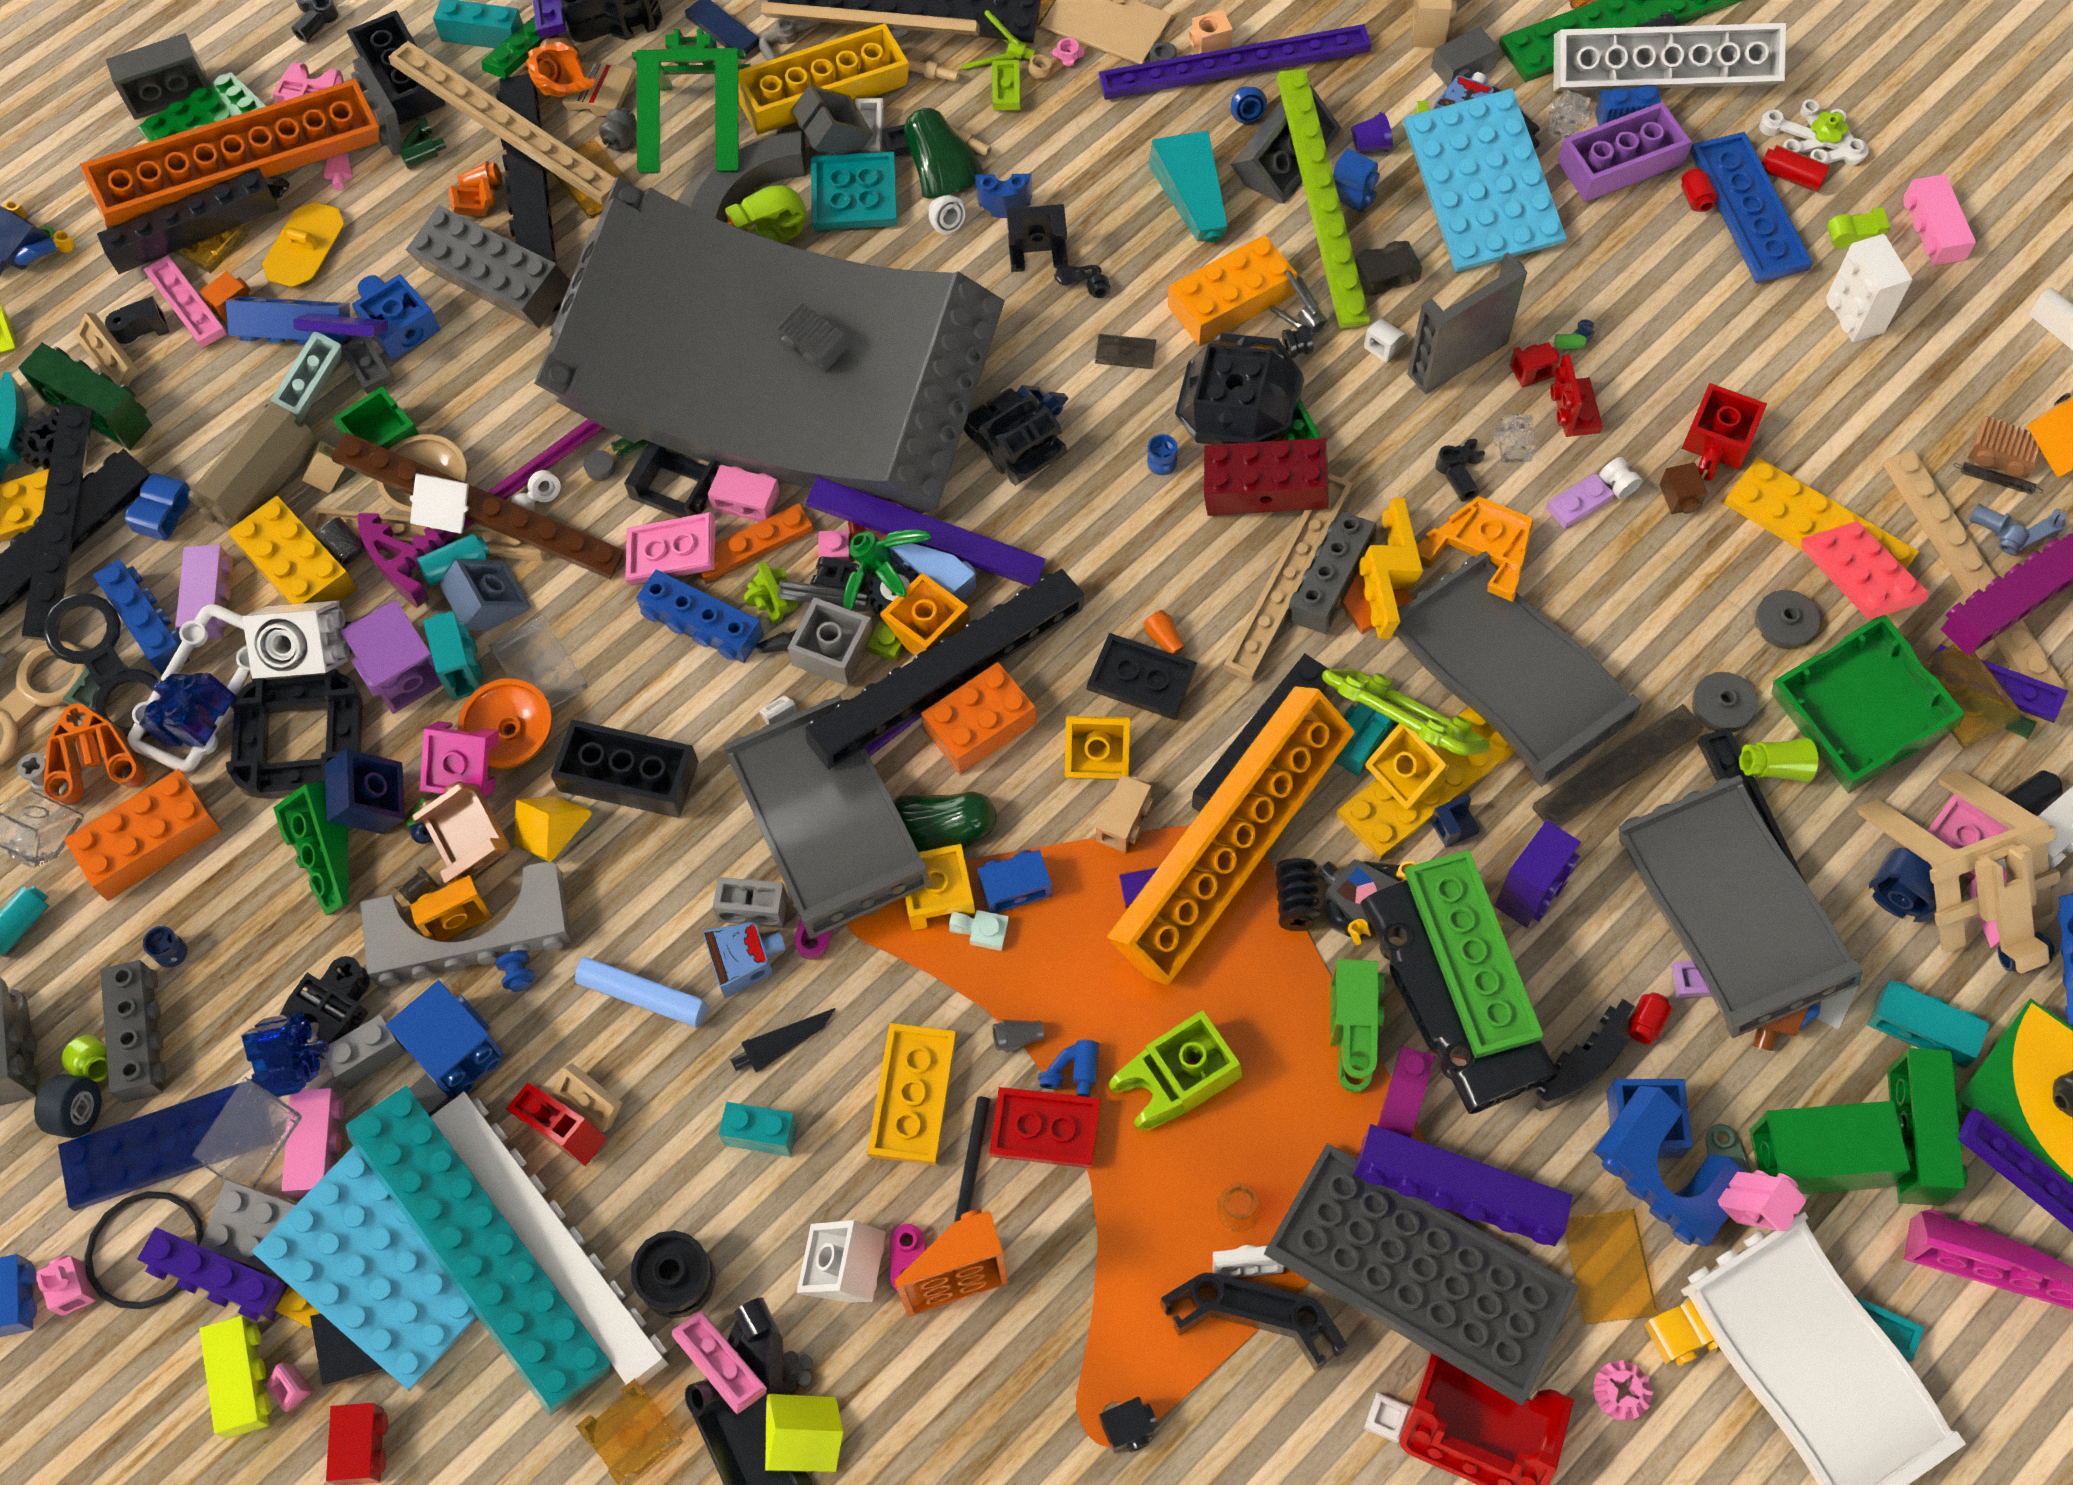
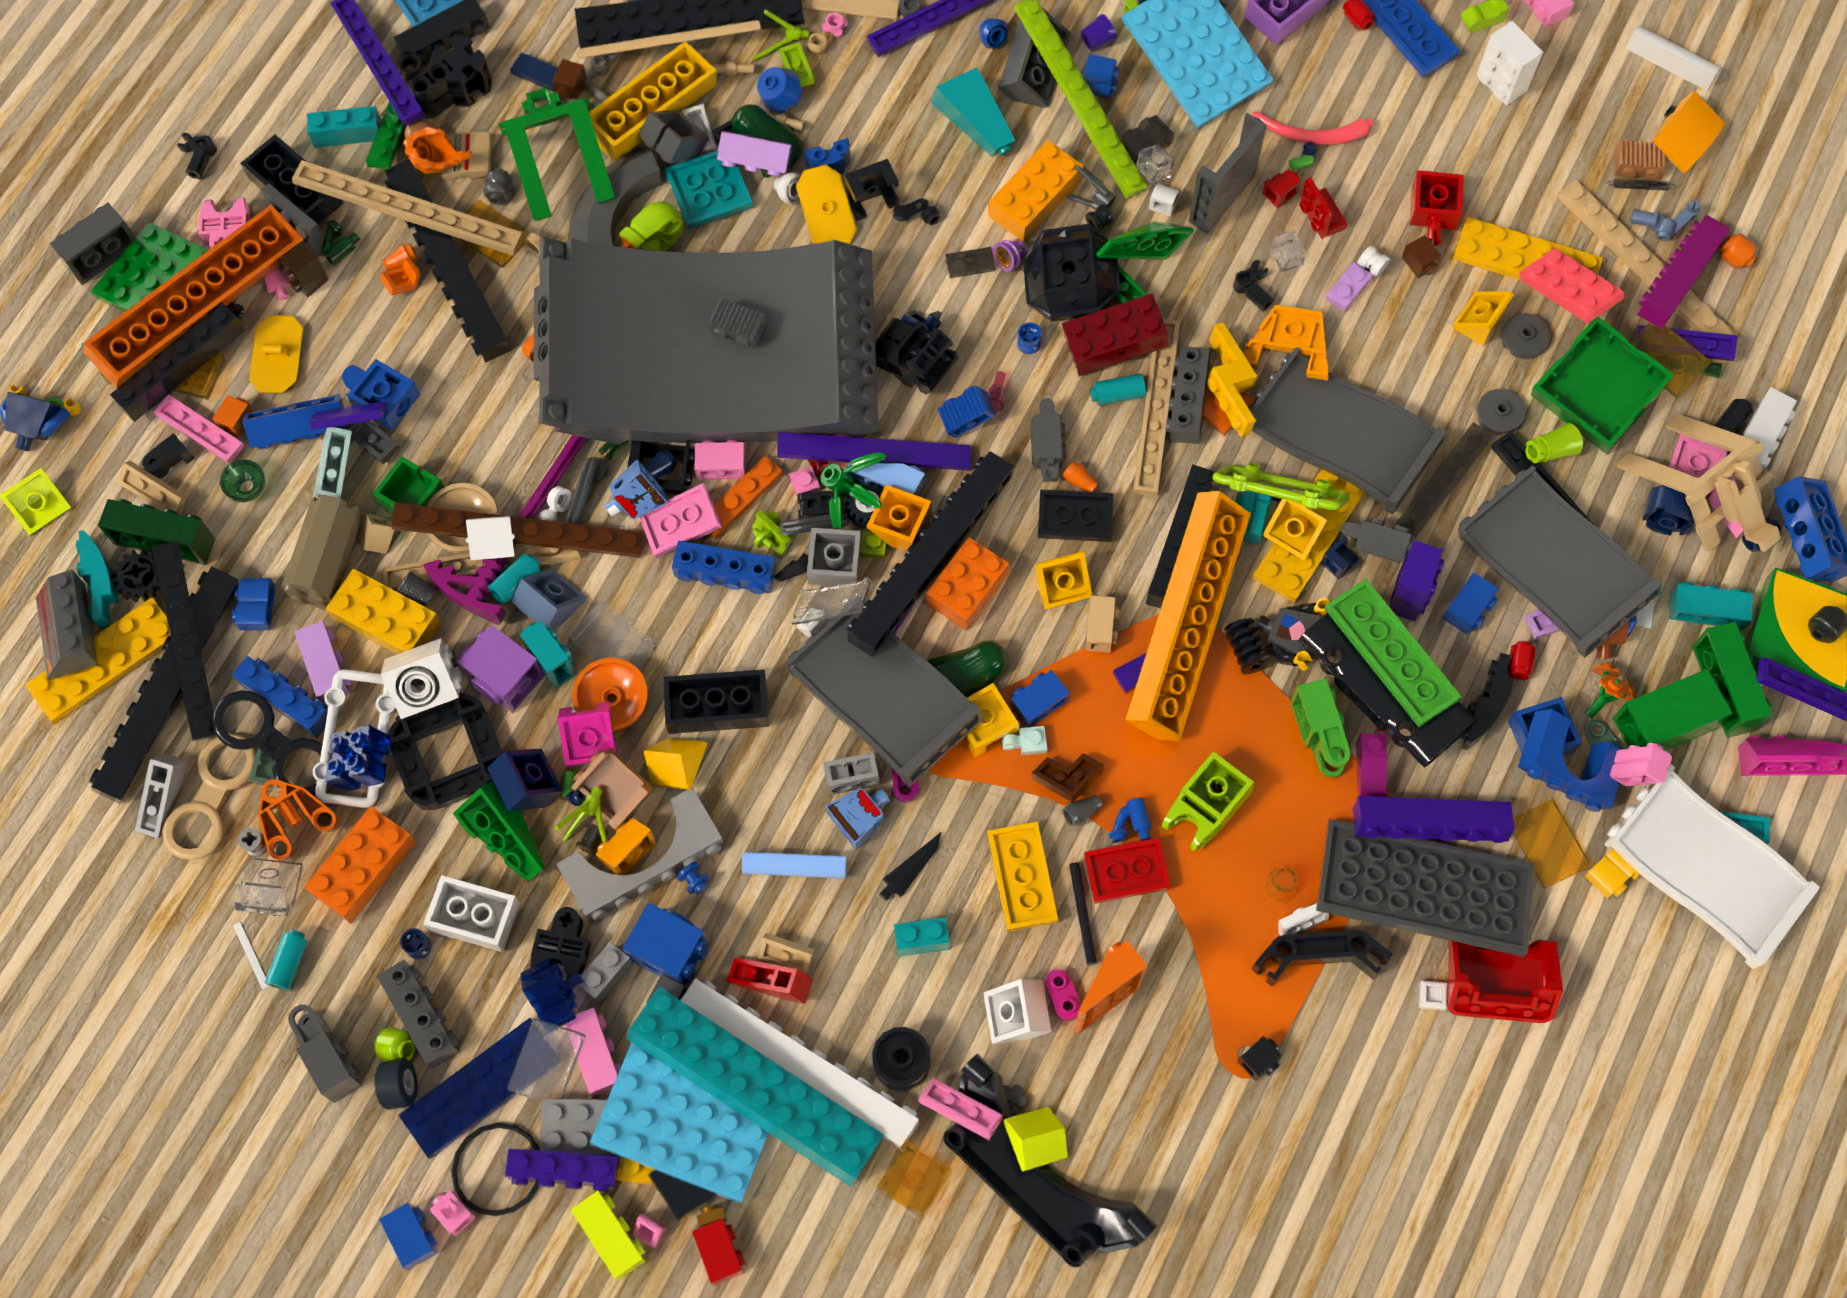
camera: 20 degrees left, 5 degrees up
(200, 361) = (236, 474): none -> clear green piece
(241, 930) = (472, 913): none -> white brick
(366, 1393) = (710, 1214): none -> pearl gold plate
(367, 161) = (303, 270): none -> dark brown brick
(425, 846) = (590, 807): none -> lime plant
(489, 266) = (445, 332): dark grey brick -> none
(572, 484) = (582, 491): none -> dark grey axle
(629, 501) = (635, 492): none -> medium blue torso
(670, 480) = (661, 464): none -> dark blue cone
(743, 32) = (569, 79): none -> reddish brown brick
(805, 690) = (831, 601): none -> clear piece
(915, 163) = (754, 153): none -> lavender brick
(974, 102) = (779, 89): none -> blue cone
(979, 241) = (826, 205): none -> yellow shield
(1015, 994) = (1068, 782): none -> reddish brown plate
(1052, 516) = (966, 411): none -> blue brick
(1095, 511) = (996, 392): none -> clear pink cone
(1138, 578) = (1046, 441): none -> dark grey hinge
(1172, 353) = (1007, 254): none -> medium lavender piece
(1248, 542) = (1118, 389): none -> teal brick
(1340, 379) = (1149, 241): none -> green wedge
(1386, 296) = (1155, 164): none -> clear brick
(1509, 810) = (1380, 540): none -> dark grey hinge
(1605, 927) = (1471, 603): none -> blue brick
(1606, 1393) = (1574, 929): bright pink gear -> none
(1624, 322) = (1320, 137): none -> coral animal
(1740, 579) = (1482, 314): none -> yellow slope
(1756, 1084) = (1612, 685): none -> orange plant

